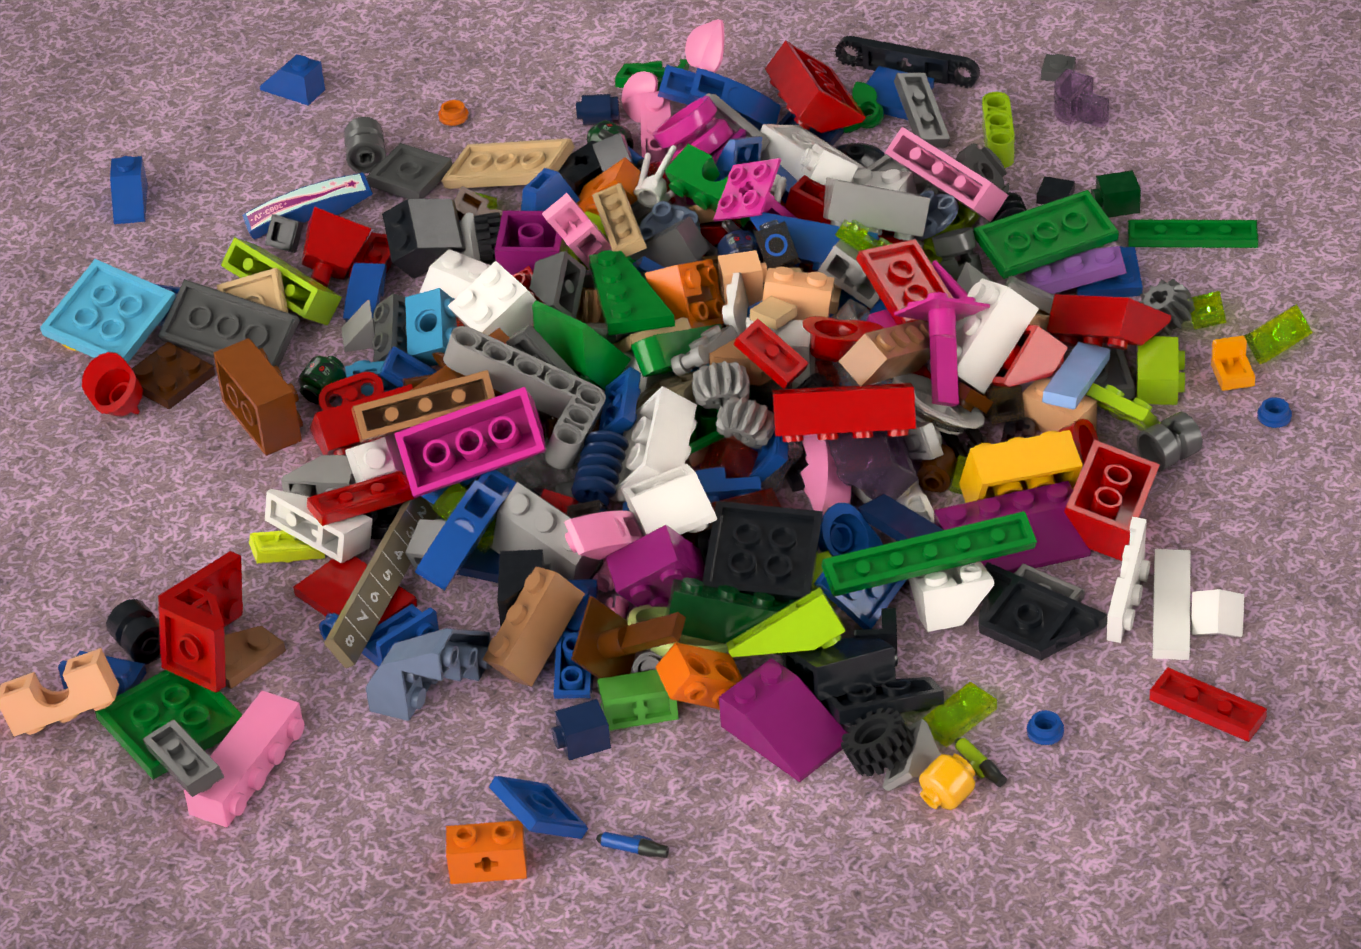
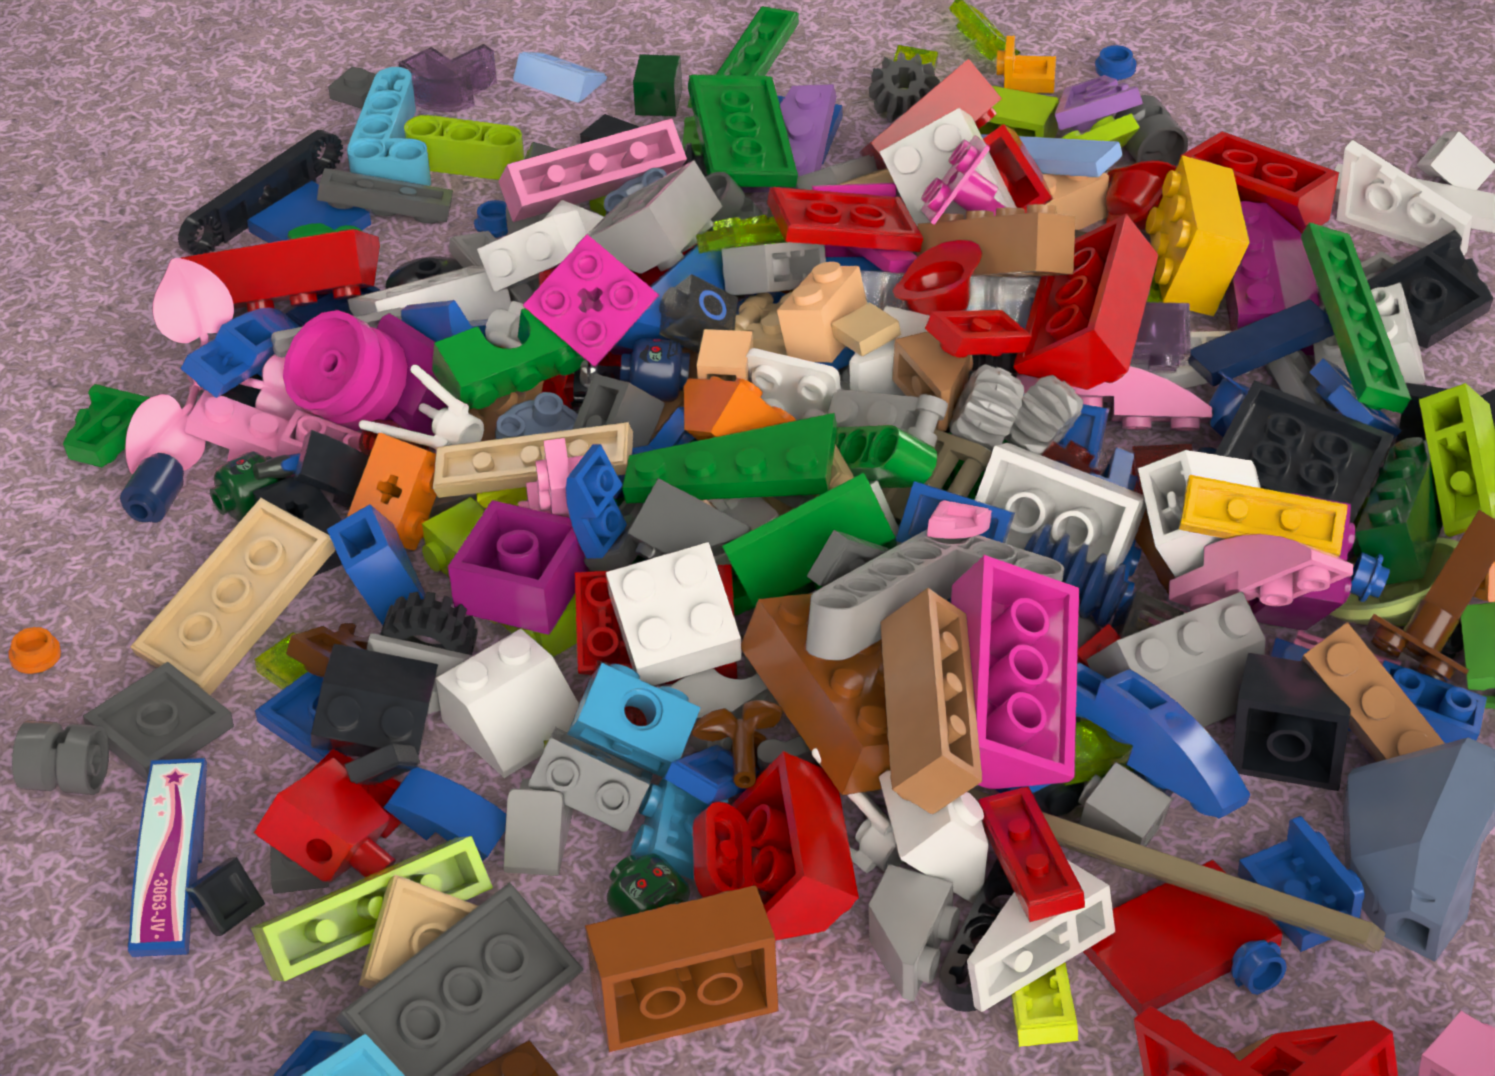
camera: 75 degrees left, 0 degrees up
(372, 248) = (383, 764): none -> black tile
(554, 232) = (591, 503): none -> blue slope
(603, 393) = (958, 520): none -> bright pink tile
(640, 518) = (1237, 510): none -> yellow tile
(650, 601) = (1368, 576): none -> blue plate
(1023, 85) = (379, 139): none -> medium azure beam
(1122, 150) = (557, 76): none -> light blue slope
(1181, 397) = (1094, 99): none -> medium lavender wing

